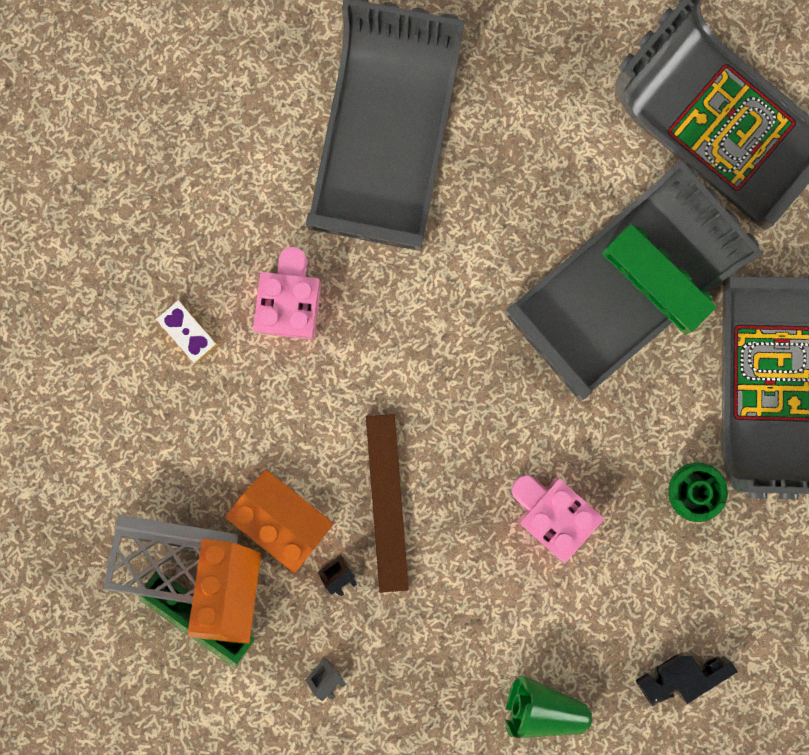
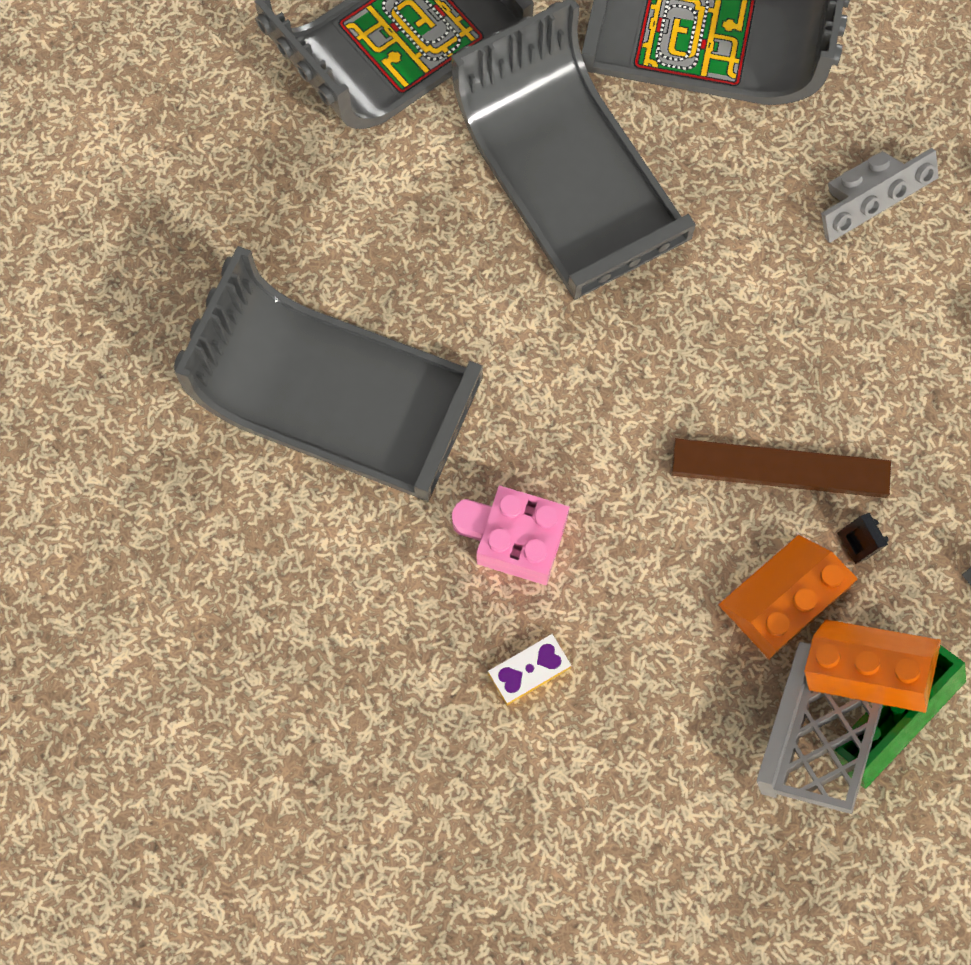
camera: 80 degrees left, 15 degrees down
(554, 514) = (821, 279): bright pink brick -> none
(656, 548) = (874, 188): none -> light grey bracket
(659, 279) = (570, 124): green brick -> none
(697, 492) = (818, 128): green cone -> none

